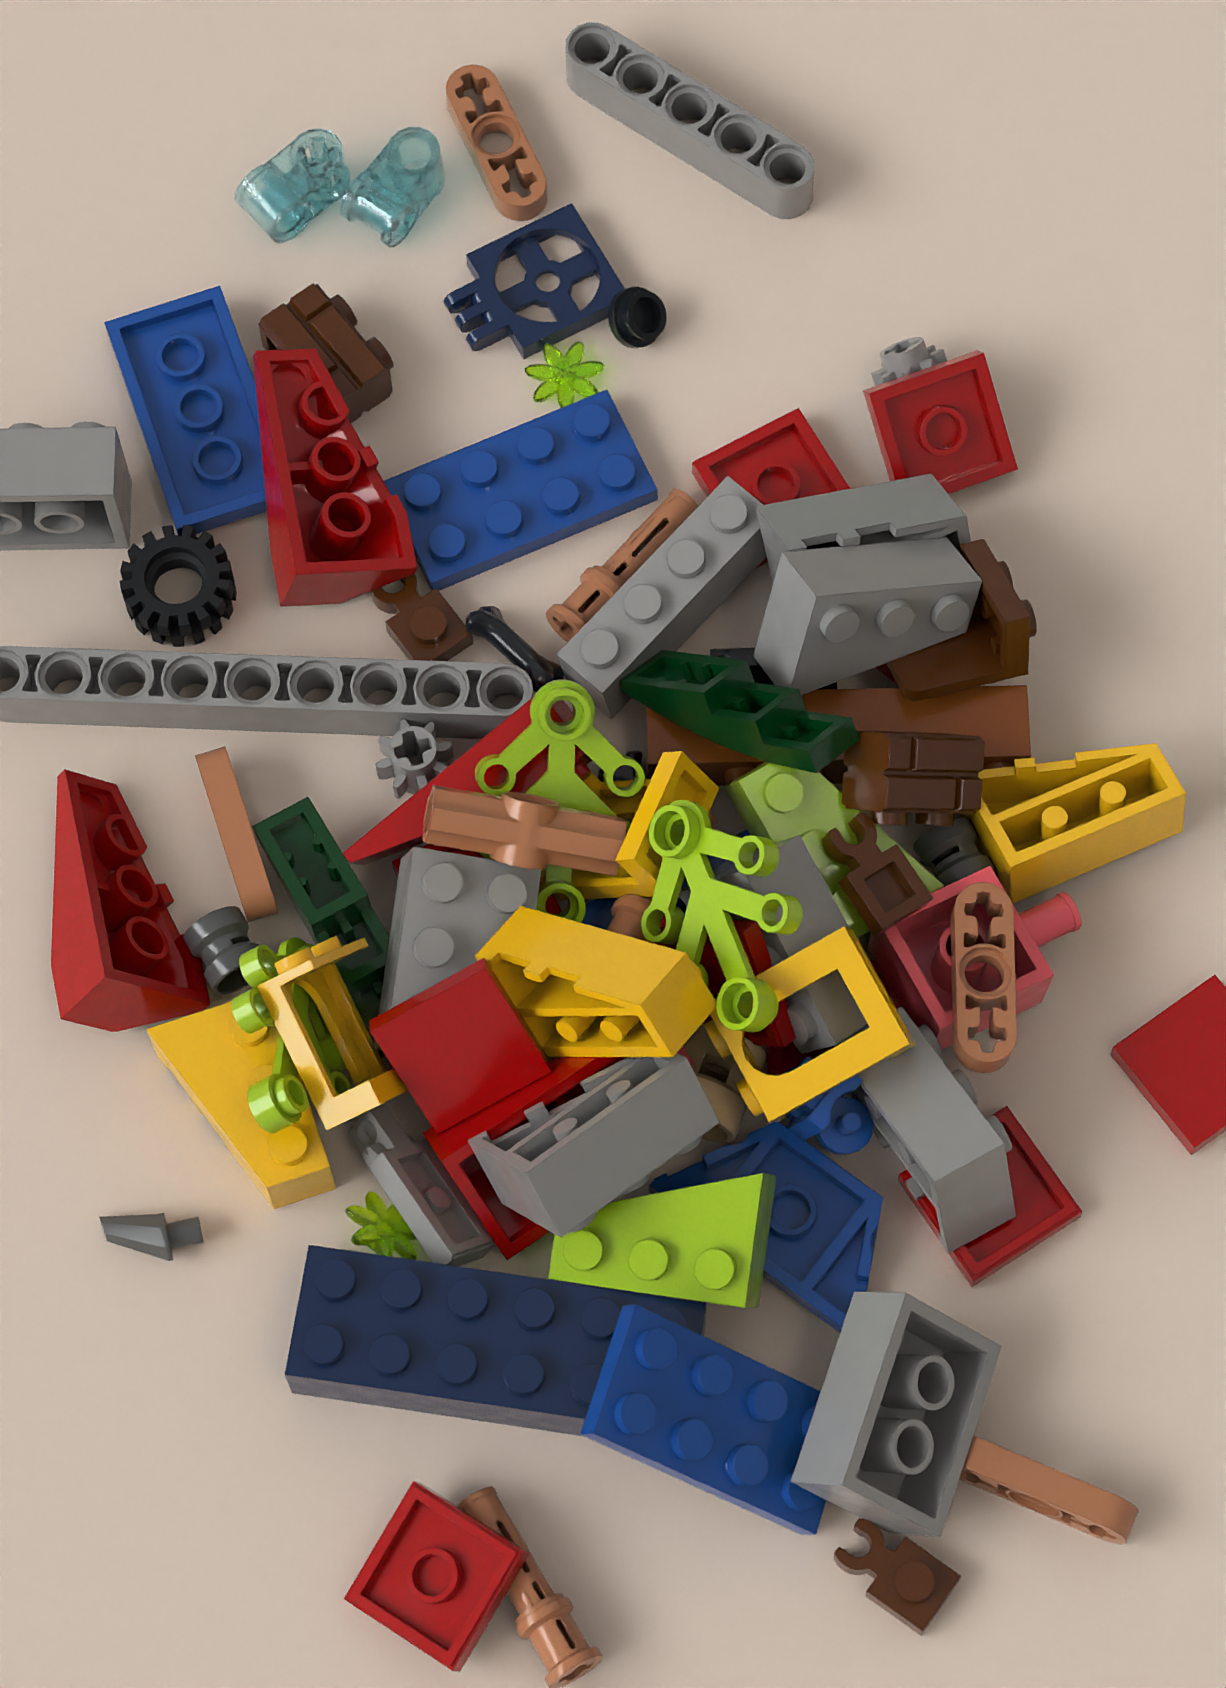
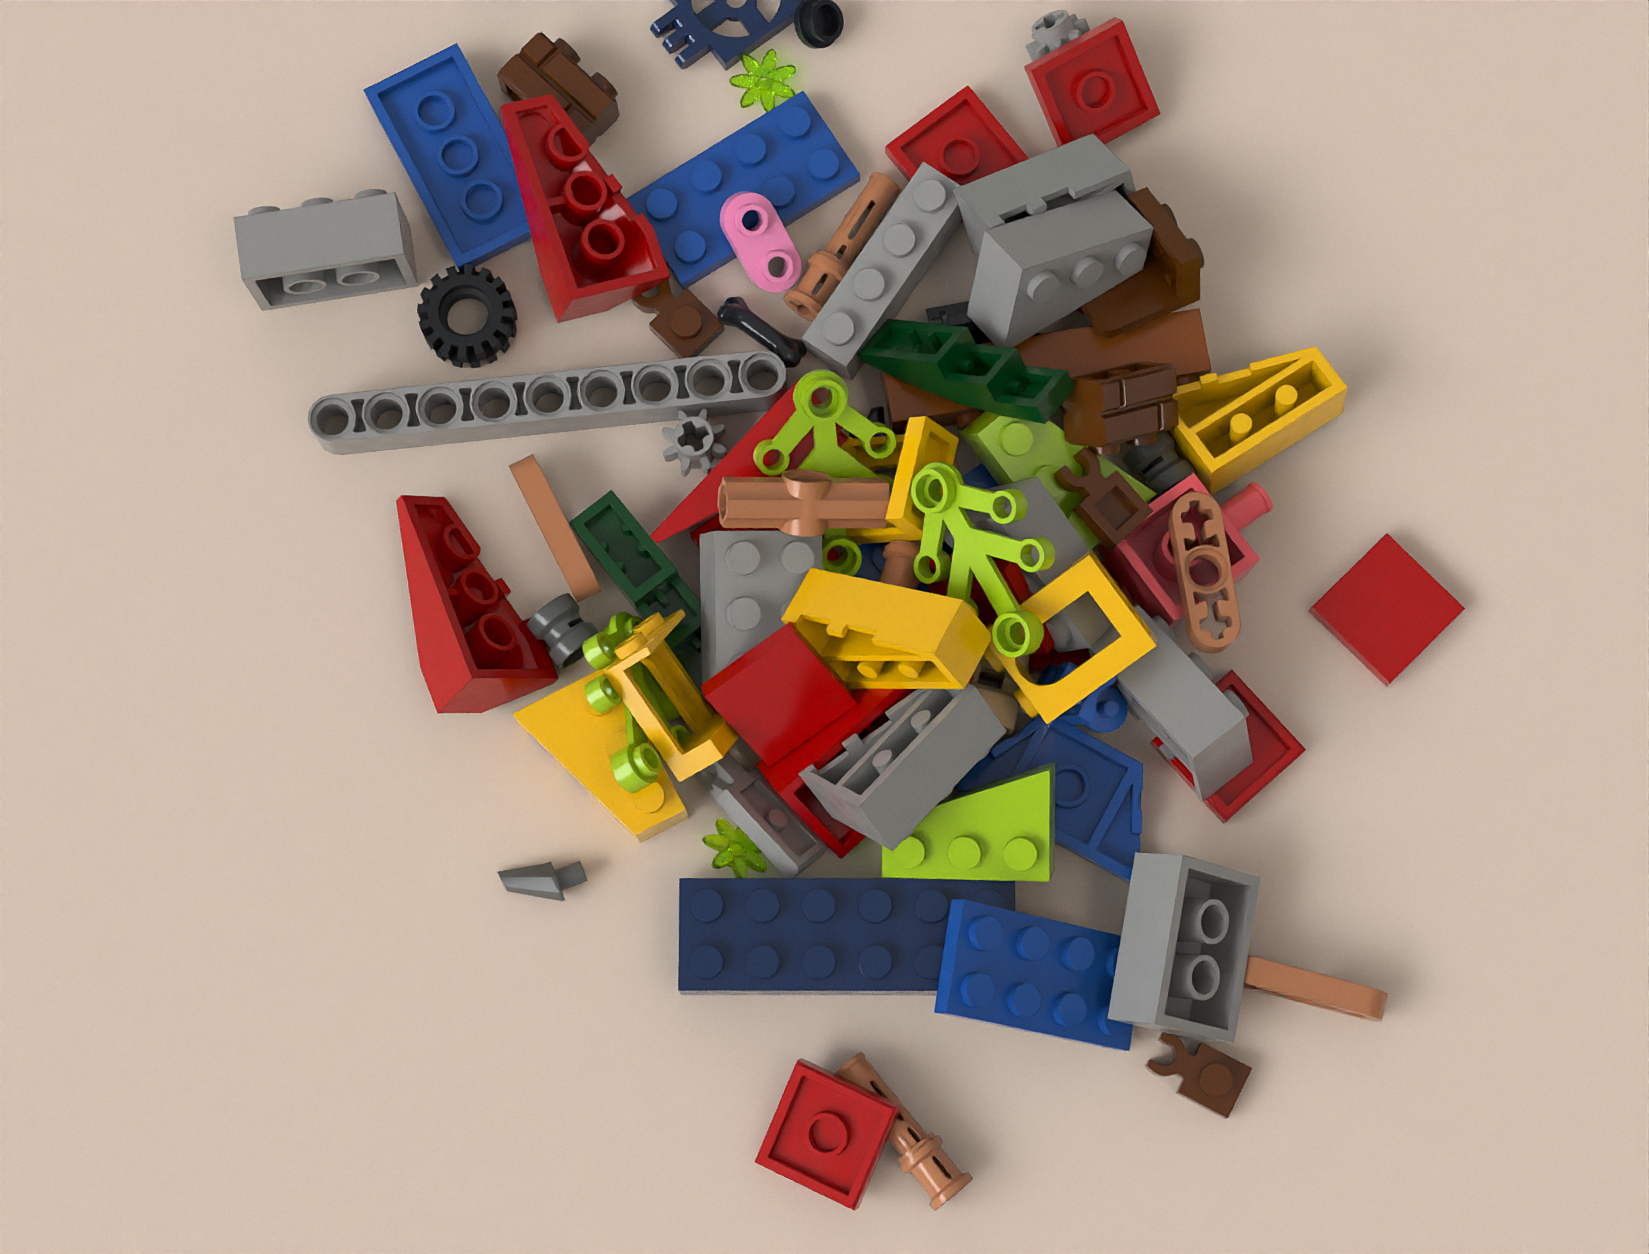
camera: 10 degrees left, 10 degrees up
(527, 548) = (762, 243): none -> bright pink plate

